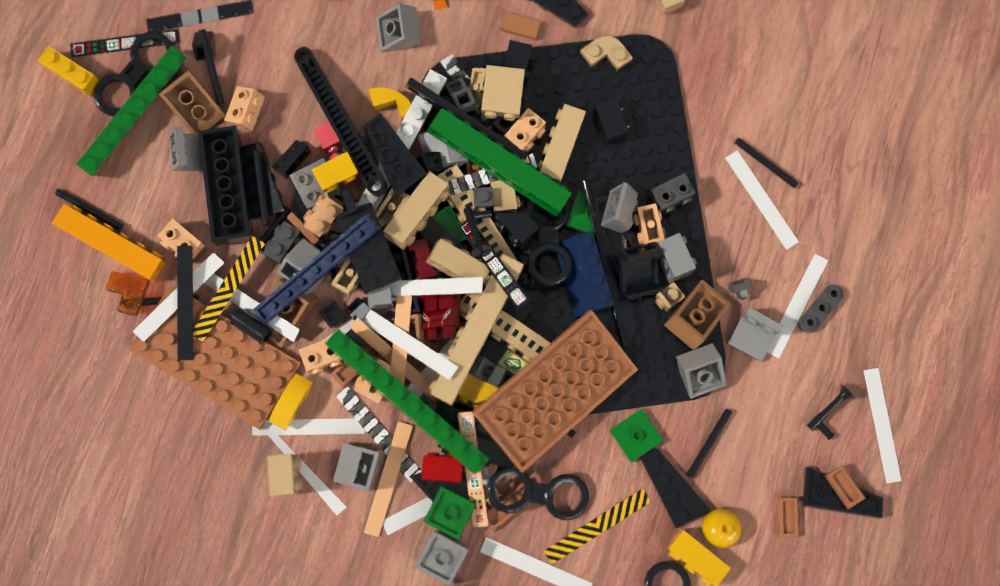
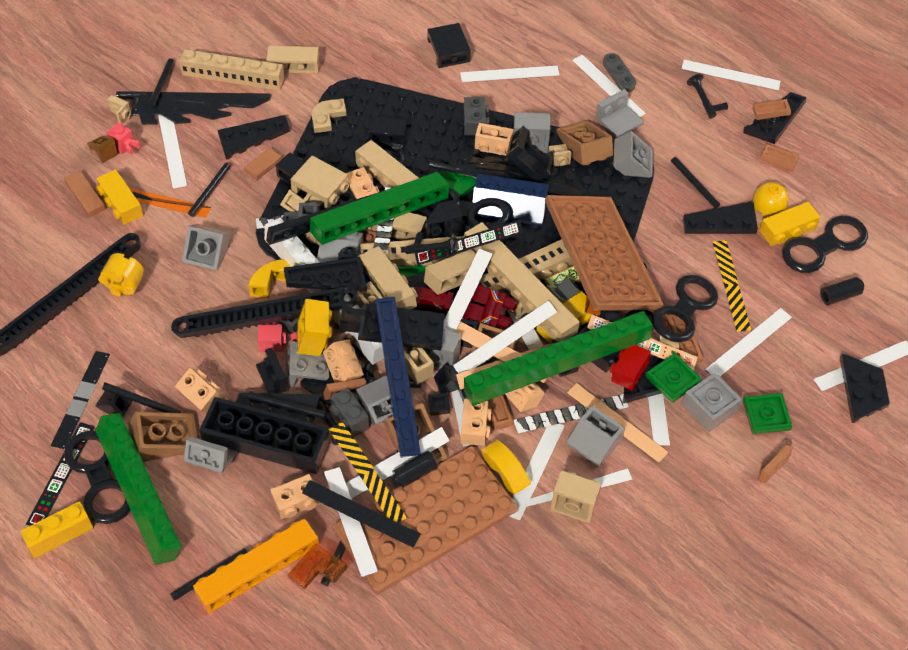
camera: 65 degrees left, 25 degrees down
(483, 197) = (403, 234): dark grey plate -> none
(620, 208) = (468, 147): light grey slope -> none
(636, 435) = (665, 226): green plate -> none
(740, 288) = (576, 110): dark grey tile -> none
(762, 121) = (449, 45): none -> black panel
(765, 162) = (481, 58): black bar -> none

